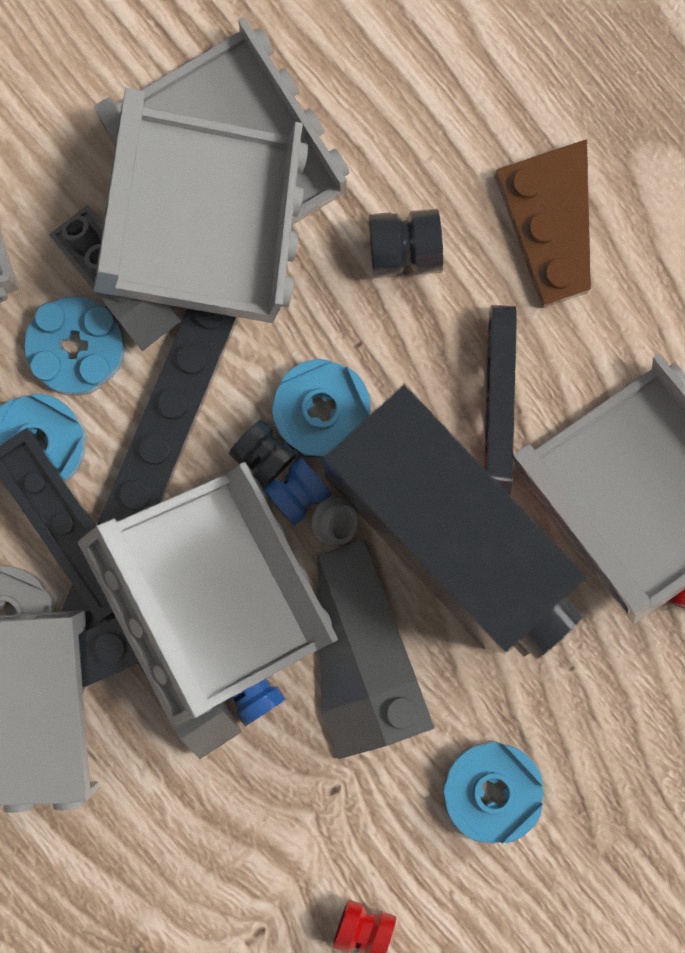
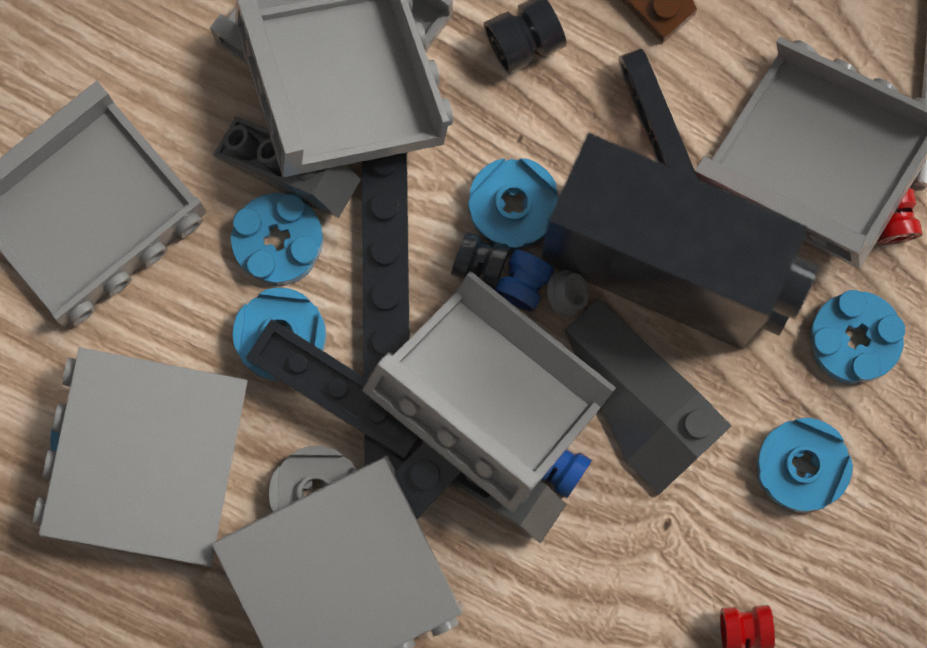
camera: 20 degrees left, 5 degrees down
(597, 715) = (882, 330): none -> dark azure plate

